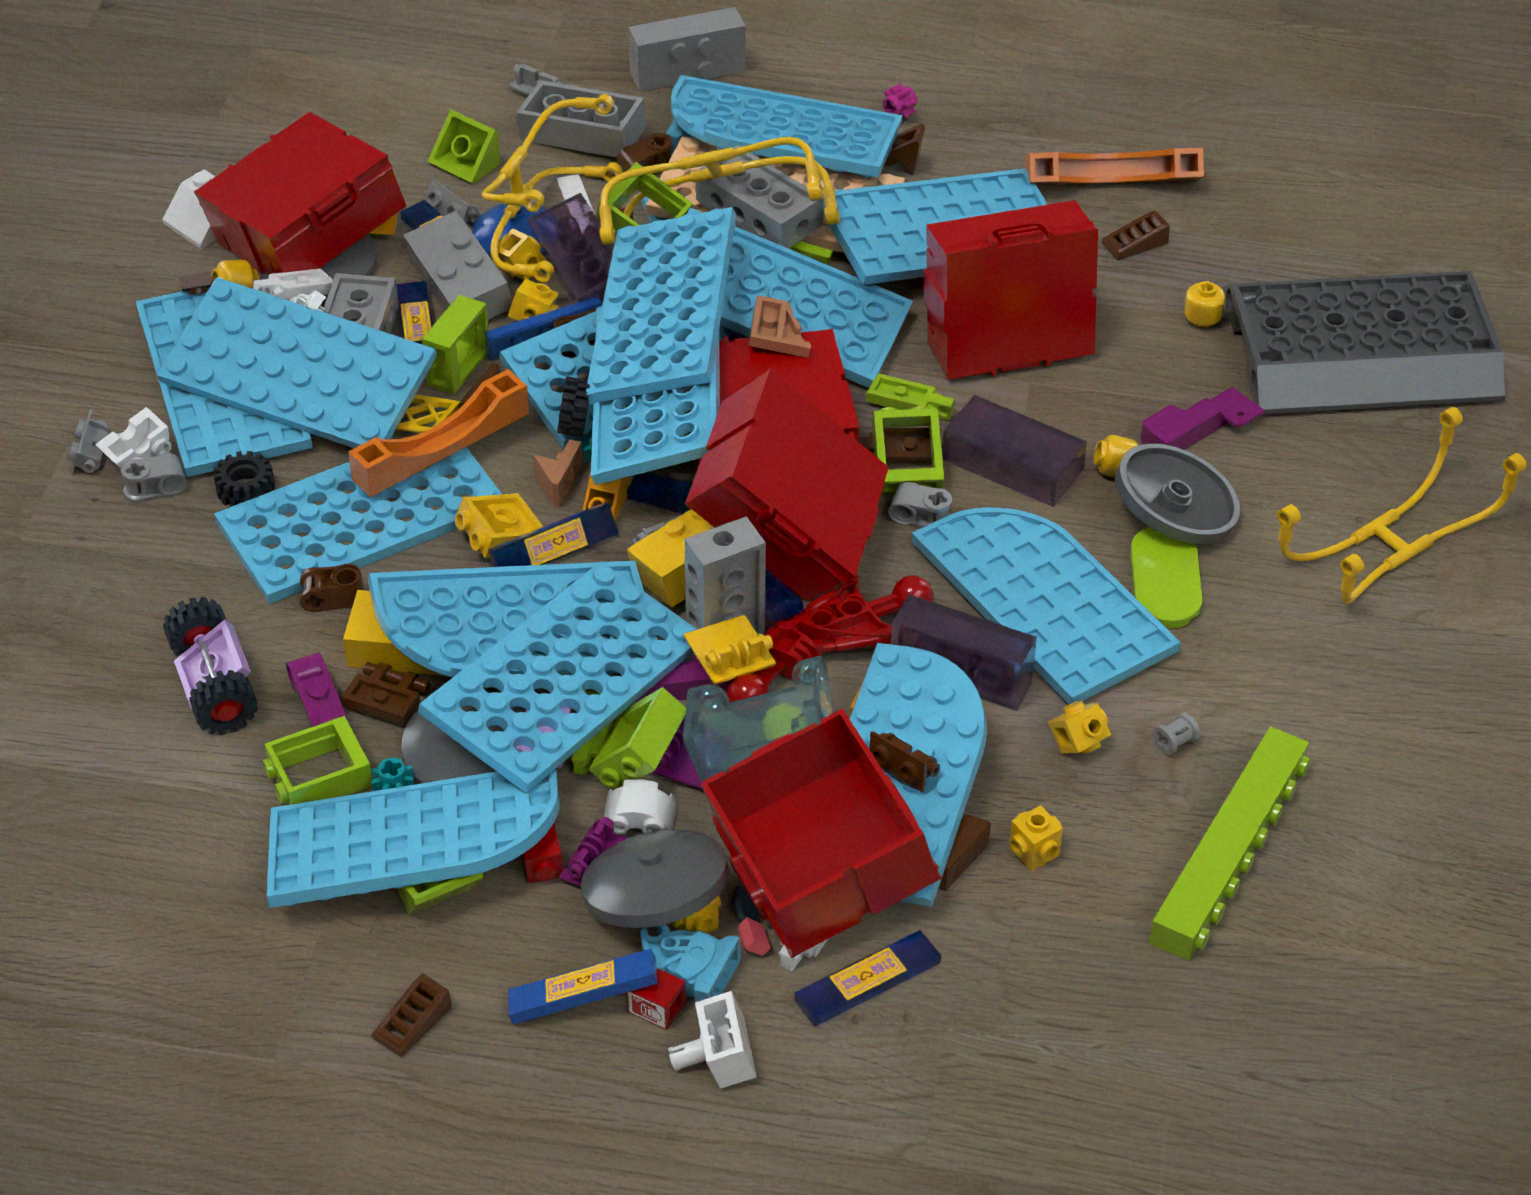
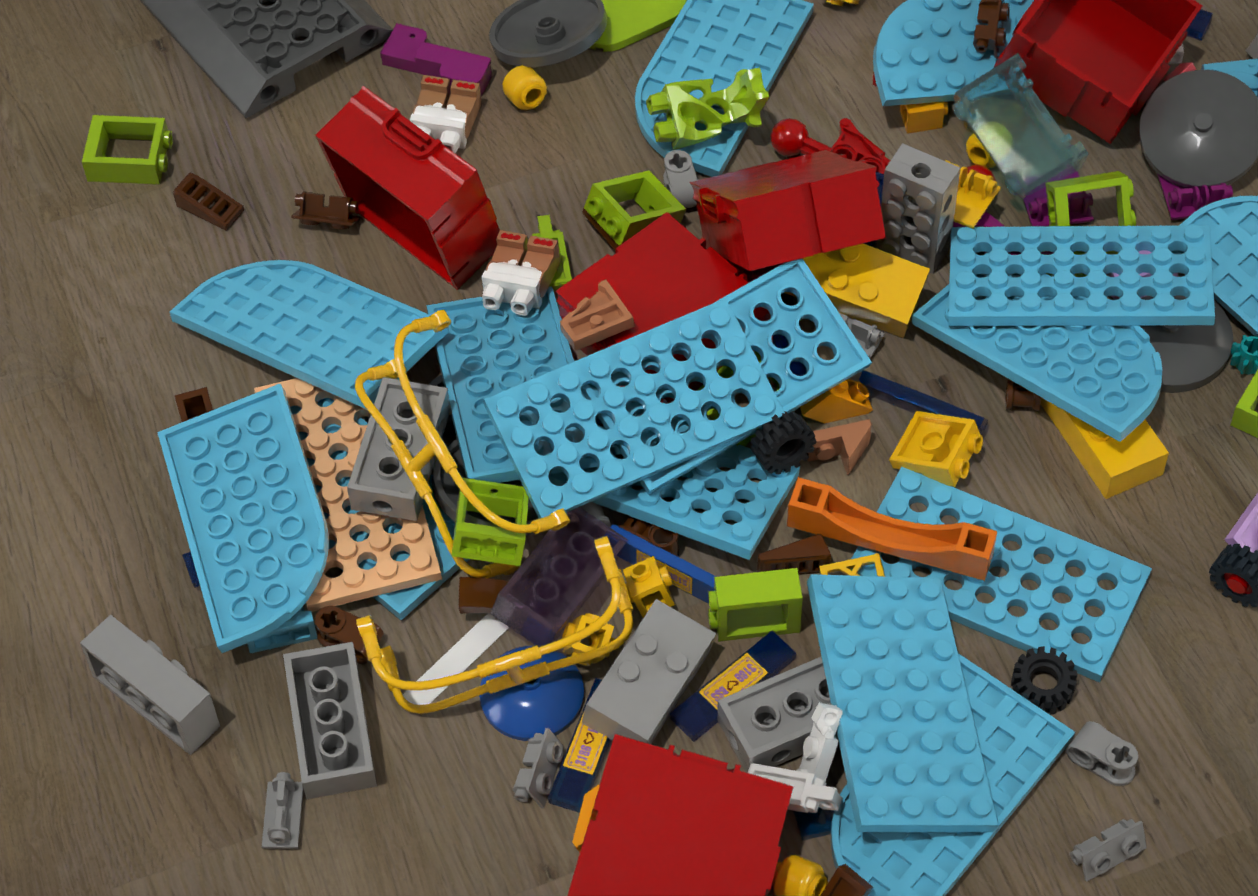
camera: 120 degrees left, 10 degrees up
(142, 439) = (1083, 798): white cylinder -> none
(315, 689) = (1218, 459): magenta plate -> none
(333, 585) = (1109, 529): reddish brown piece -> none
(385, 700) = (1182, 415): reddish brown plate -> none
(466, 148) = (448, 807): lime slope -> none
(640, 806) = (1148, 199): white cylinder -> none
(891, 348) = (519, 272): none -> hips
(900, 101) = (115, 465): dark pink gear -> none
(972, 516) = (740, 103): none -> lime hips
(990, 654) = (831, 68): clear purple brick -> none
(1013, 450) = (568, 150): clear purple brick -> none
(1110, 168) = (93, 210): orange arch -> none
(1123, 395) = (447, 110): none -> hips
(1204, 304) = (285, 108): yellow head -> none
(1239, 192) = (126, 170): none -> lime window

